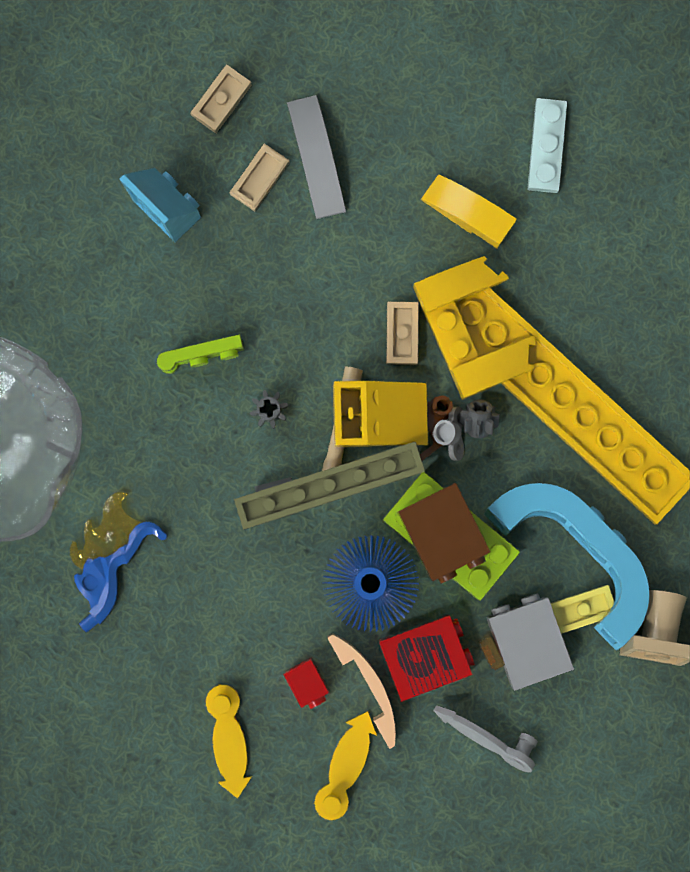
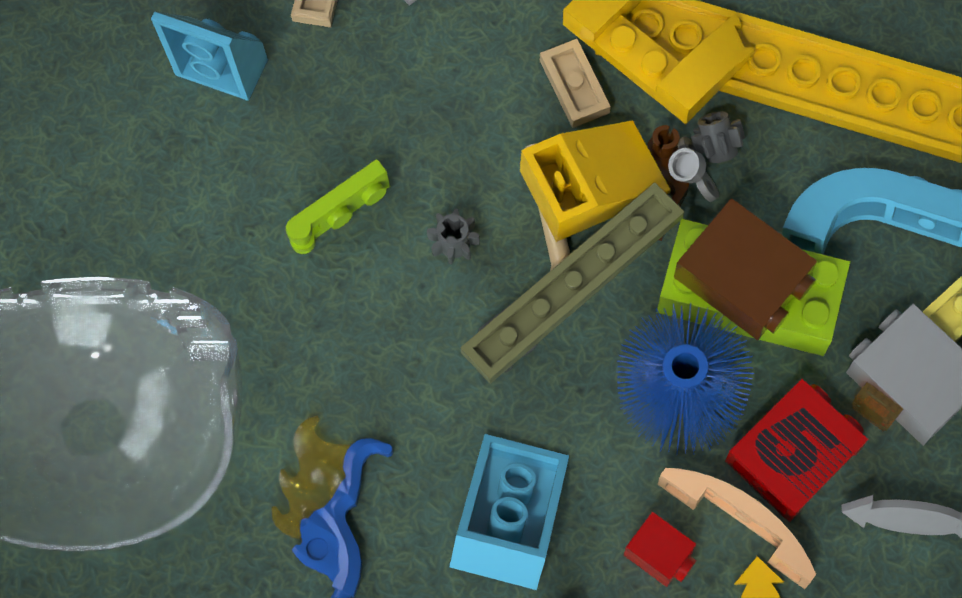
camera: 20 degrees left, 15 degrees down
(223, 613) = (509, 512): none -> medium azure slope

